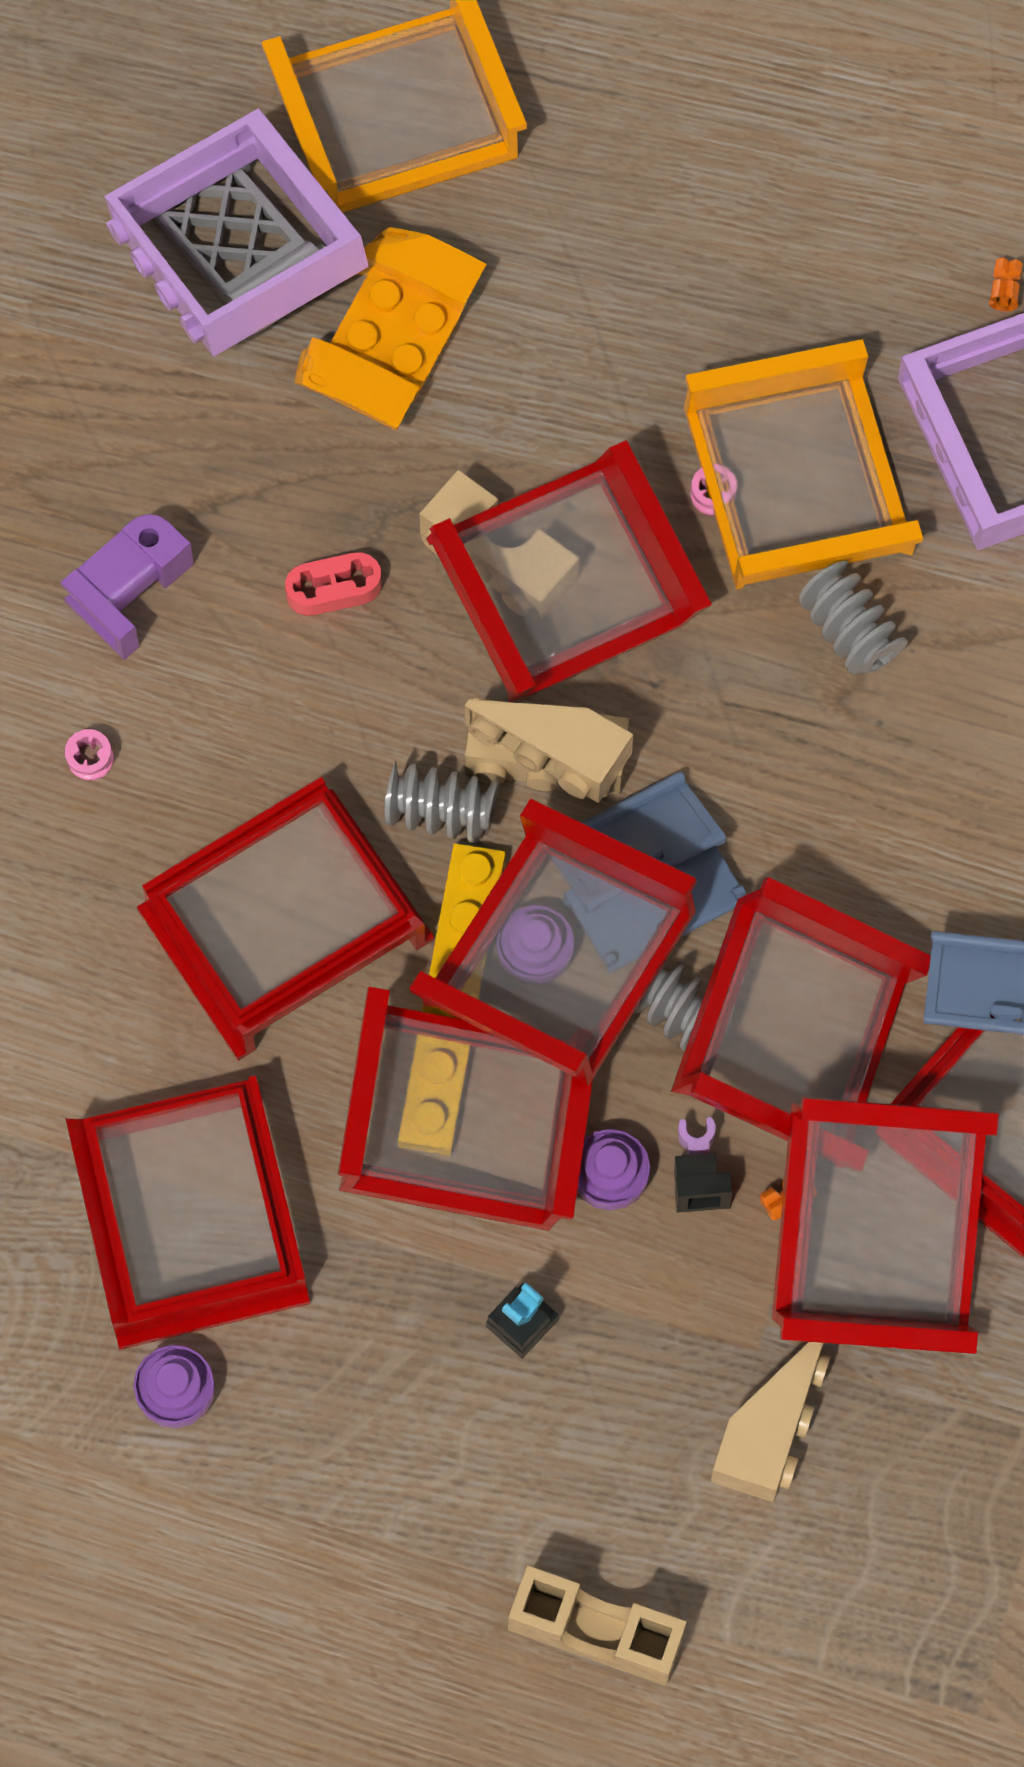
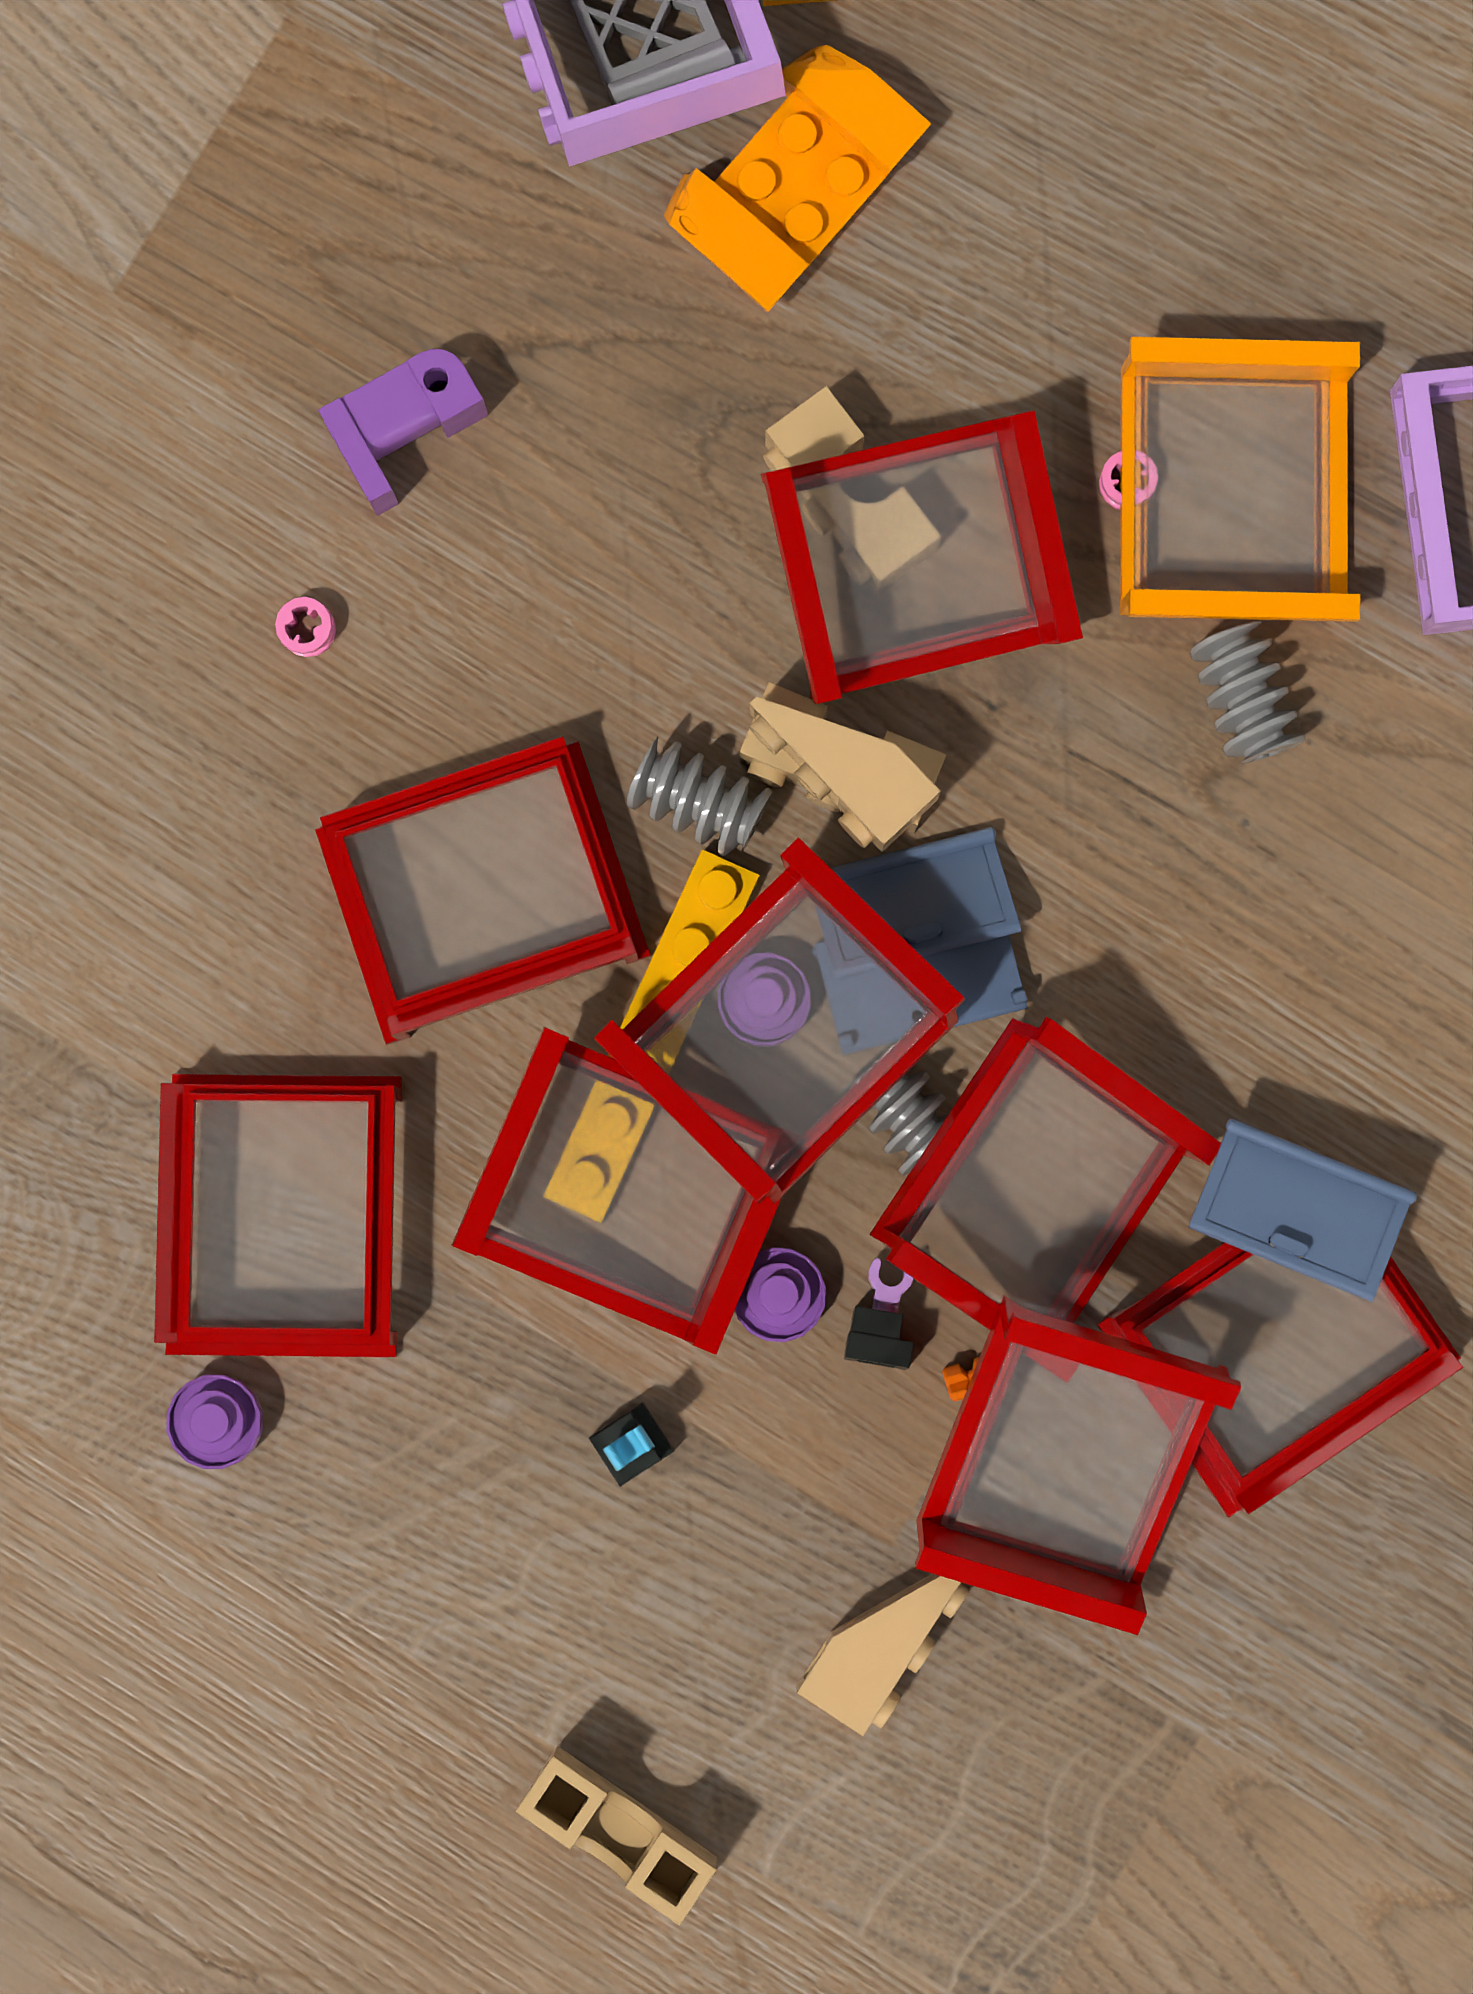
camera: 20 degrees right, 15 degrees up
(333, 584) = (645, 470): coral beam -> none

